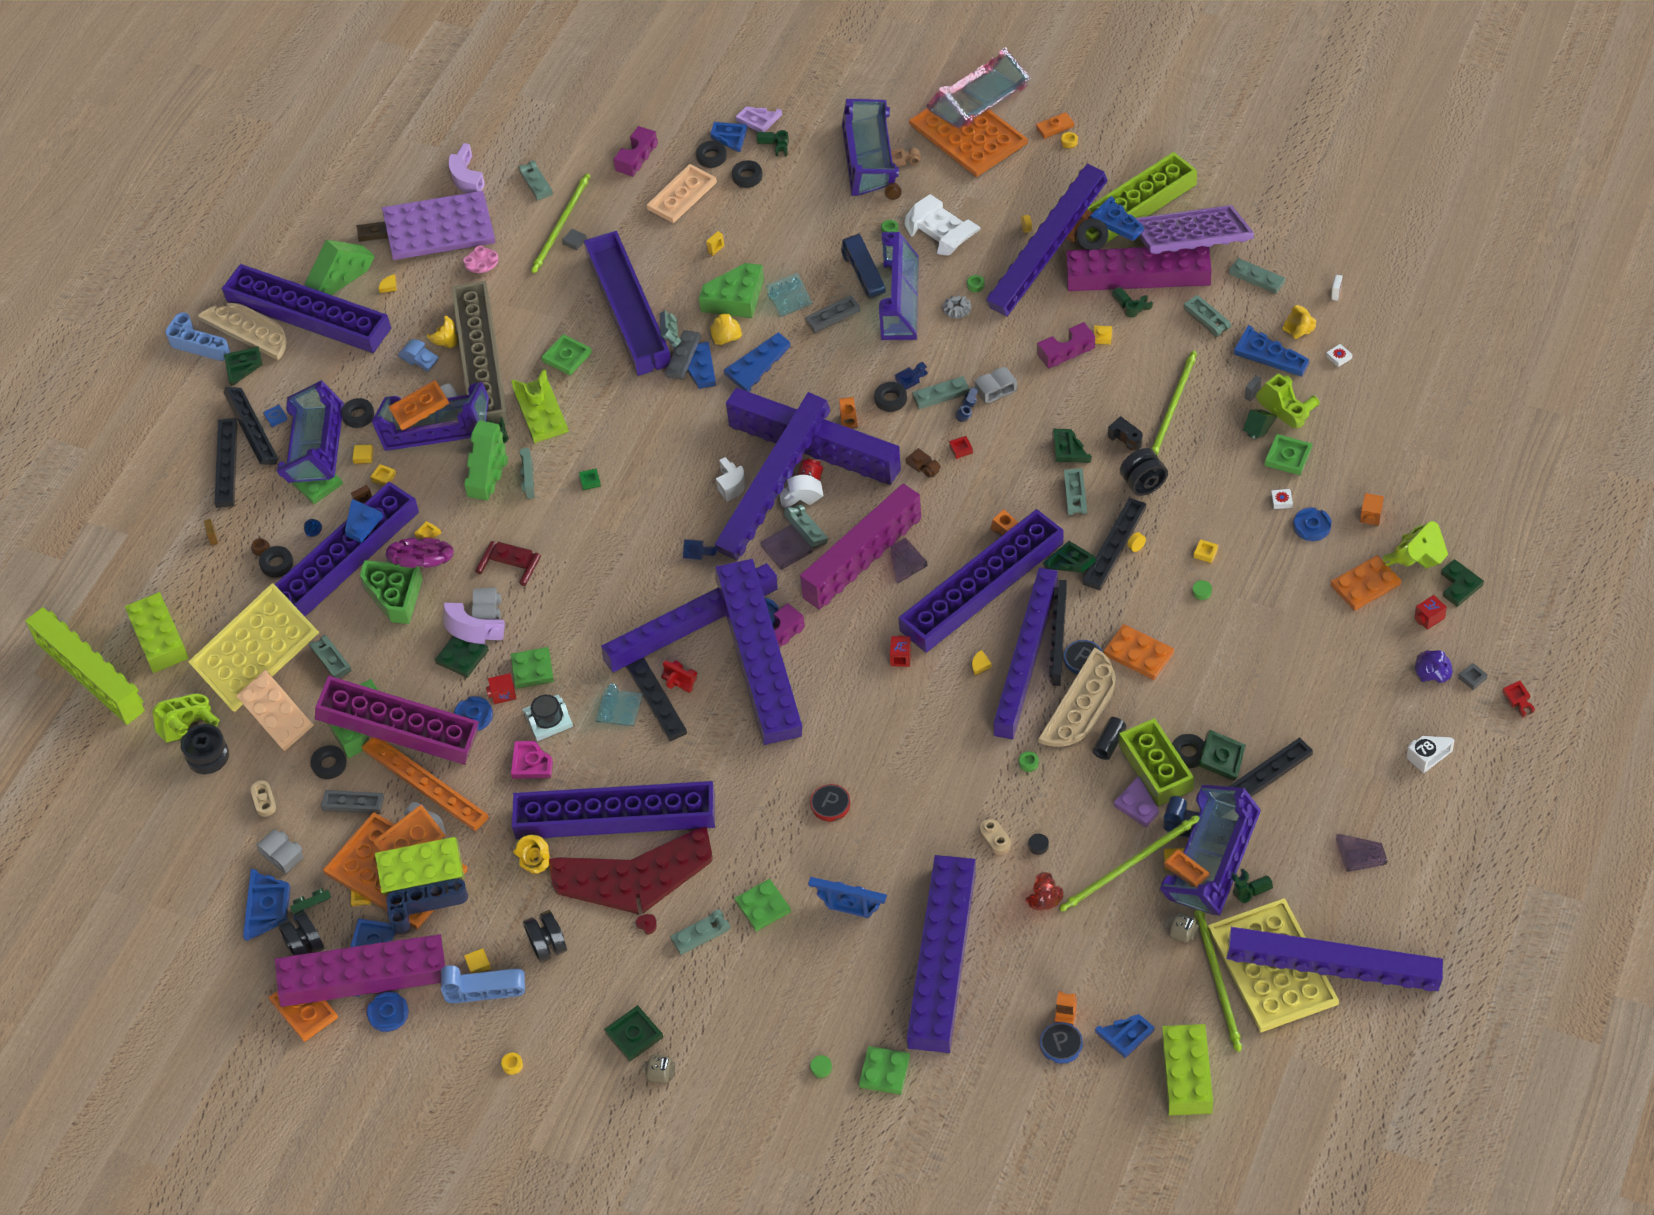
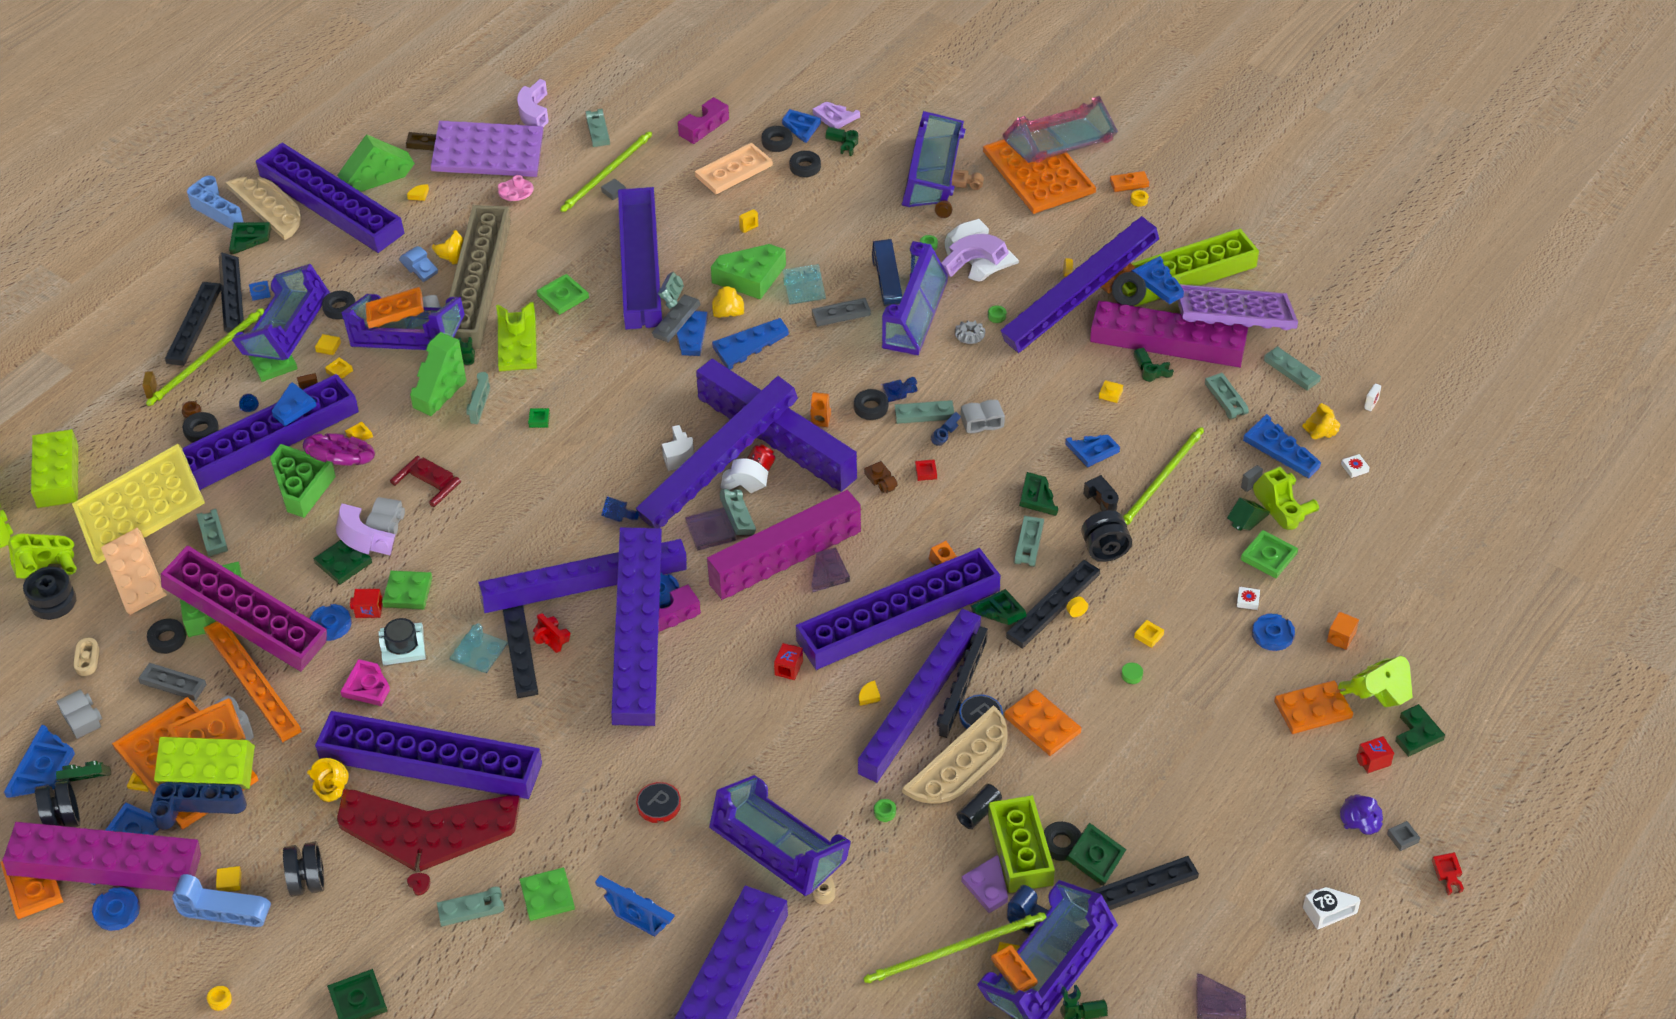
camera: 10 degrees right, 5 degrees down
(255, 488) = (158, 395): none -> lime hose
(938, 223) = (974, 247): none -> lavender arch
(945, 807) = (775, 836): none -> windscreen
(1038, 844) = (864, 902): black tile -> none
(1046, 894) = (853, 958): clear red hair -> none
(1054, 352) = (1056, 398): magenta arch -> none
(1104, 393) = (1093, 449): none -> blue wing

